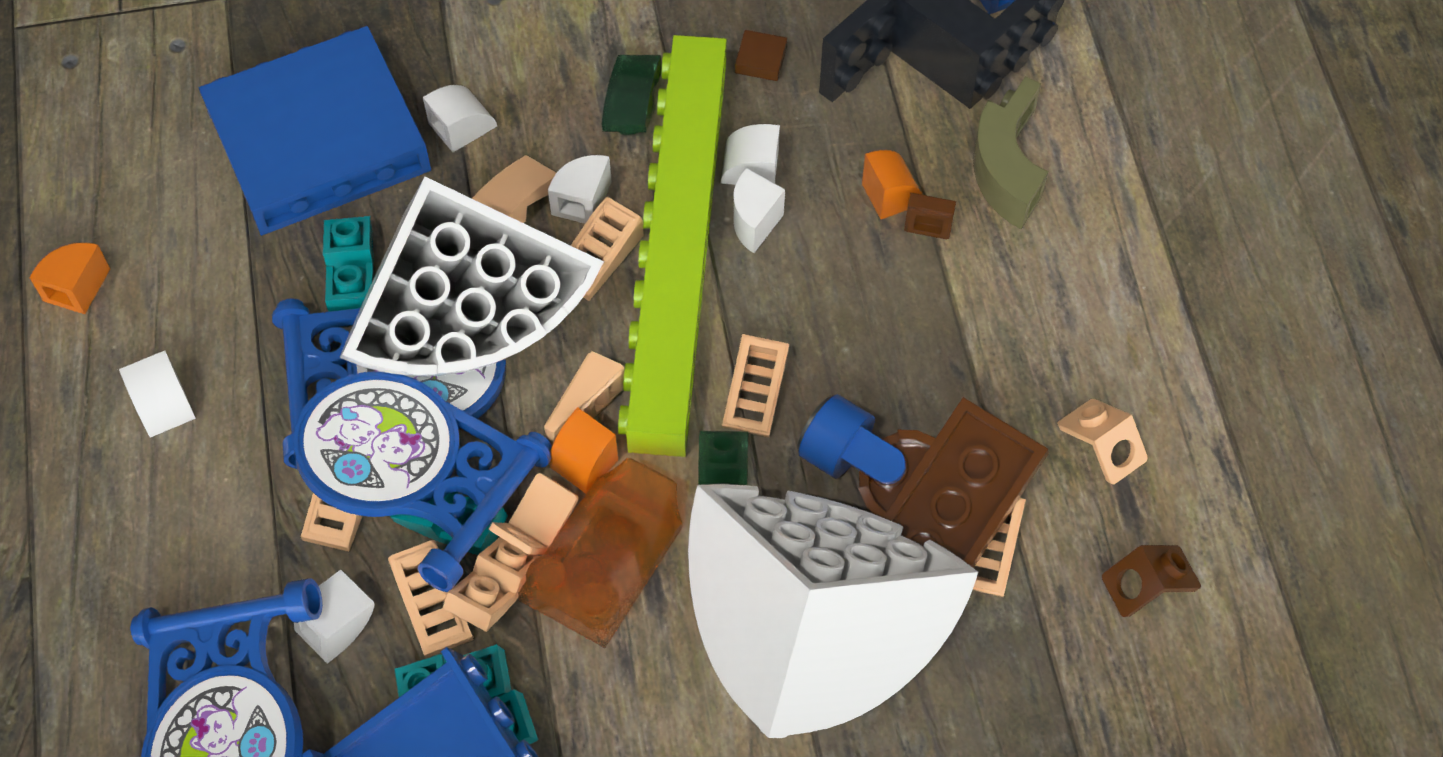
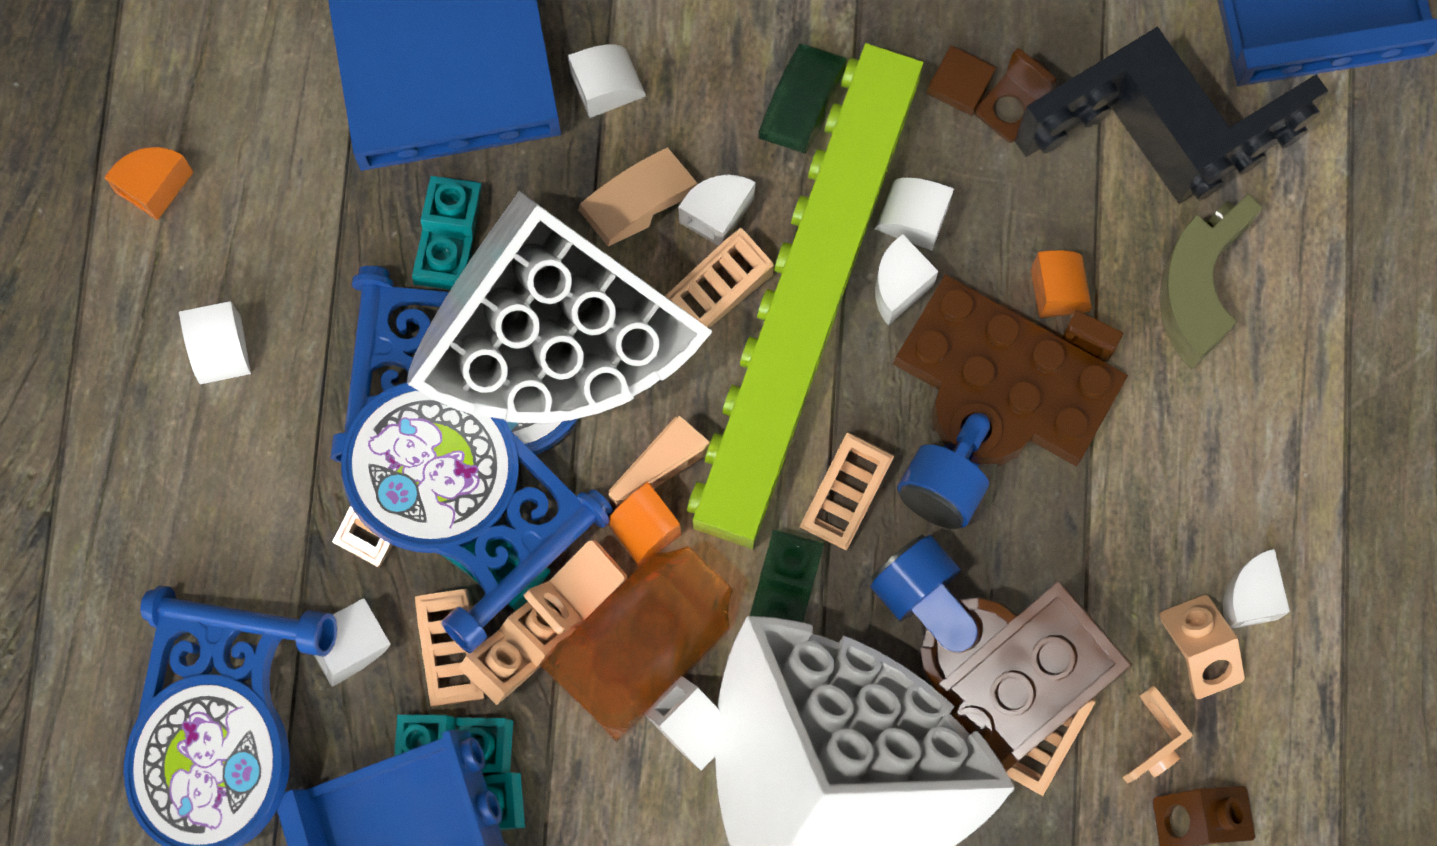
camera: 15 degrees right, 15 degrees up
(665, 608) = (687, 721): none -> white brick
(810, 35) = (1025, 81): none -> reddish brown bracket
(860, 284) = (997, 391): none -> reddish brown plate
(1103, 513) = (1173, 725): none -> light nougat bracket
(1136, 381) = (1255, 593): none -> white brick

